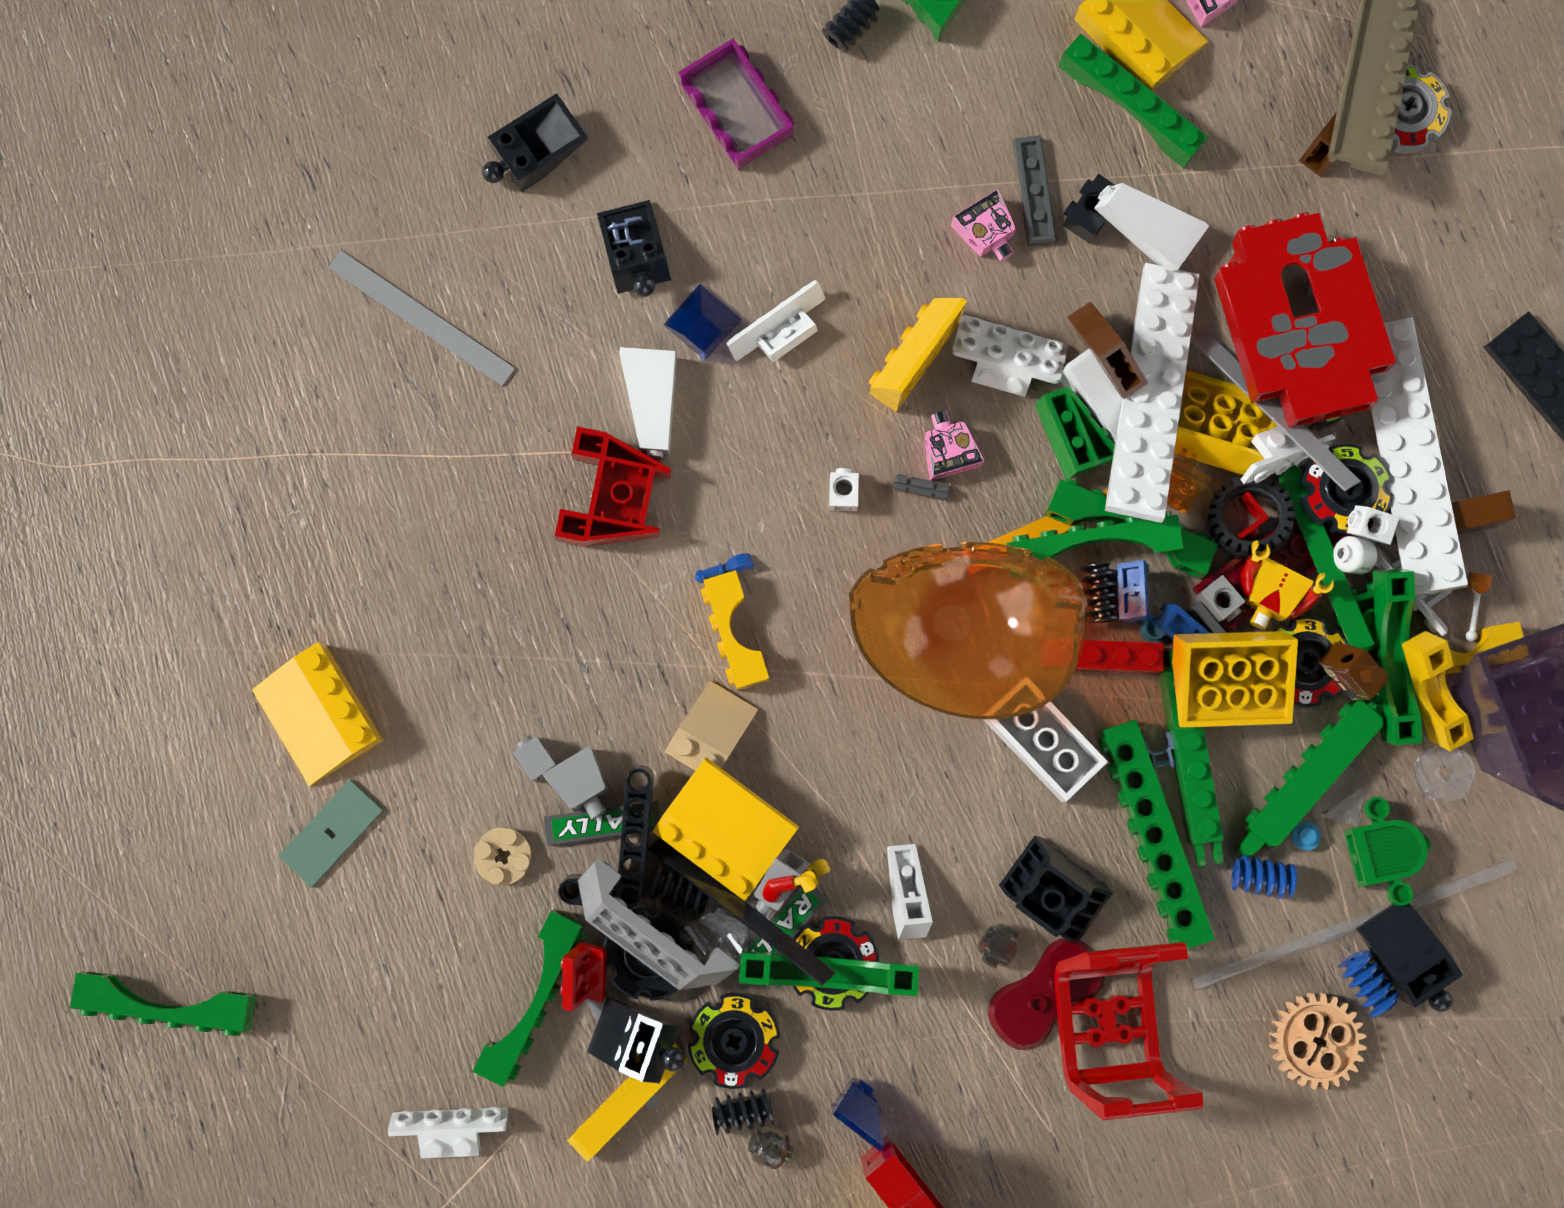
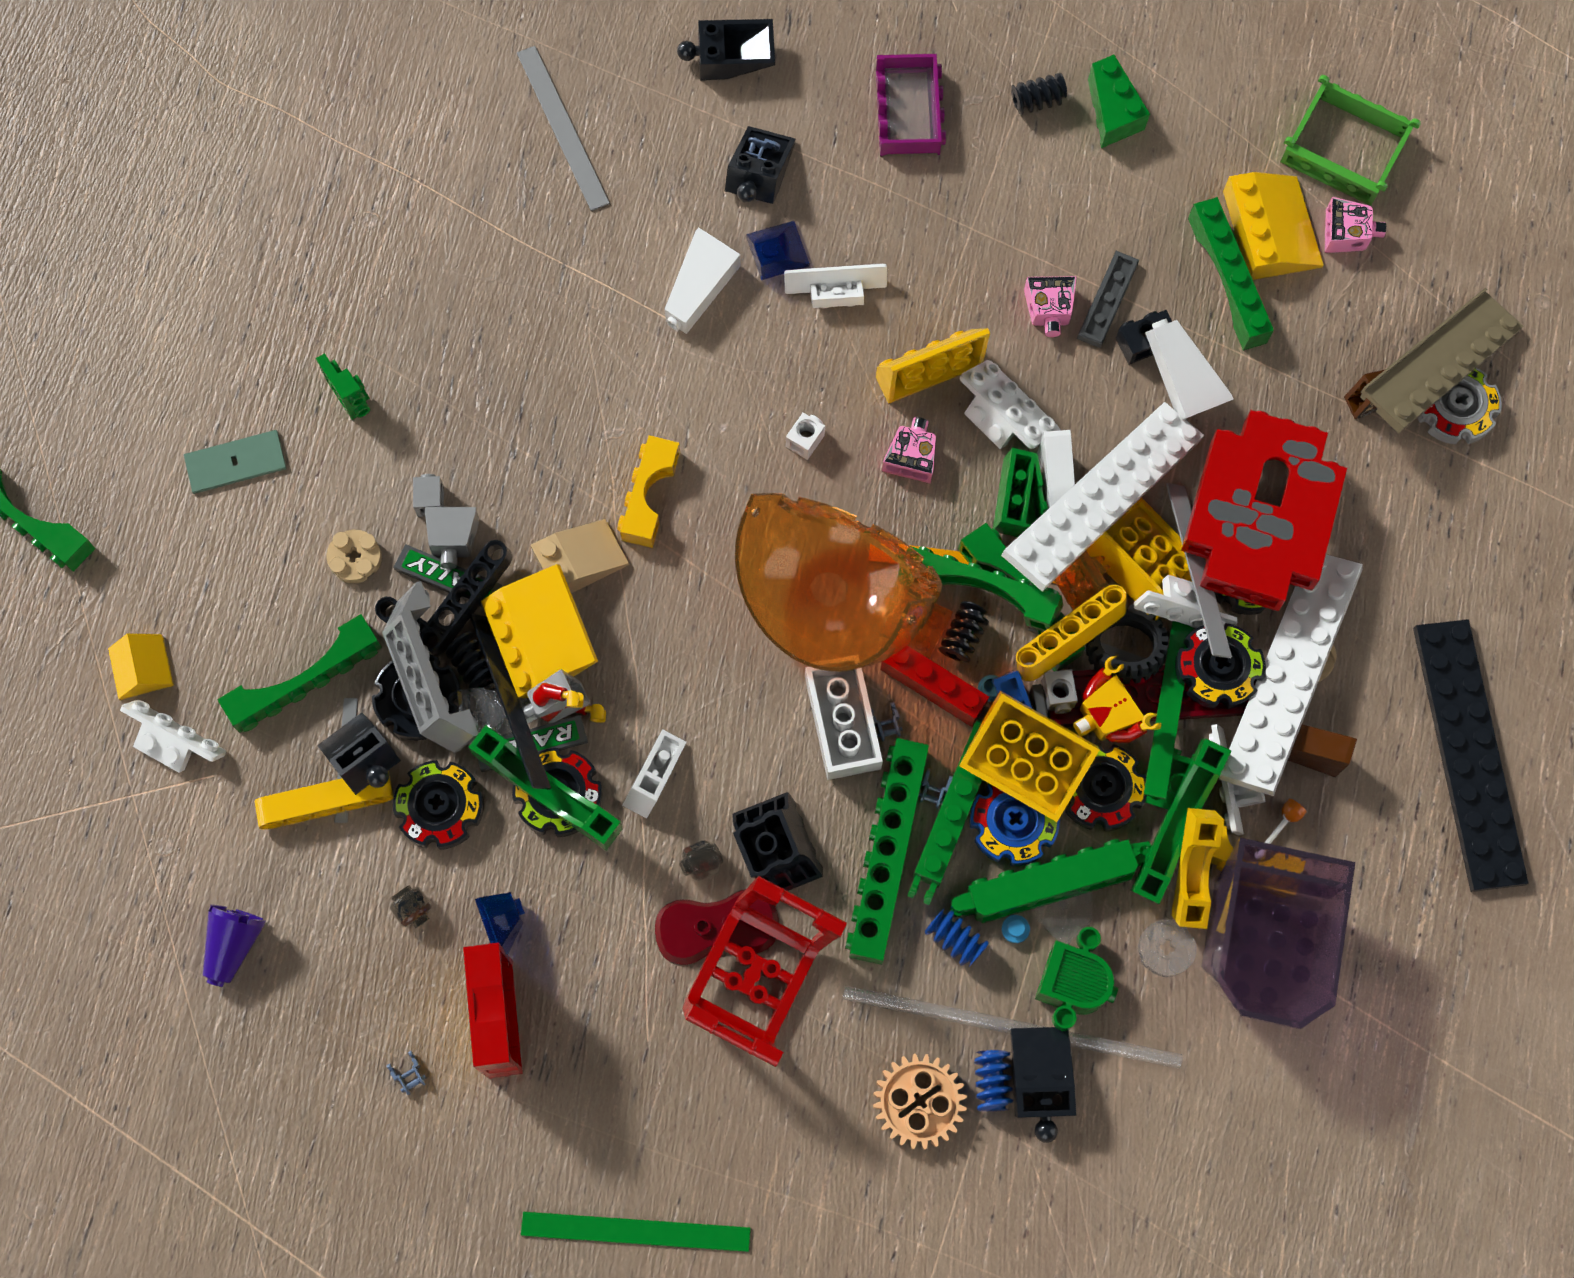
camera: 30 degrees right, 10 degrees down
(317, 713) = (282, 365): yellow slope -> none
(375, 1079) = (140, 664): none -> yellow slope
(398, 705) = (346, 387): none -> green plate
(583, 975) = (352, 679): red bracket -> none
(618, 495) = (623, 335): red wedge -> none
(738, 563) = (685, 442): blue piece -> none
(742, 1111) = (406, 864): black piece -> none
(921, 486) = (871, 469): dark grey axle -> none
(1094, 718) = (896, 730): none -> sand blue piece
(1108, 349) = (1085, 442): reddish brown slope -> none
(1133, 591) = (989, 644): hinge -> none
(1203, 527) = (1076, 621): none -> yellow beam
(1247, 763) = (1000, 839): none -> blue piece
(1258, 514) = (1129, 653): red bracket -> none
(1353, 671) = (1134, 810): reddish brown torso -> none
(1355, 555) = (1195, 721): white head -> none
(1383, 524) = (1233, 702): white brick -> none

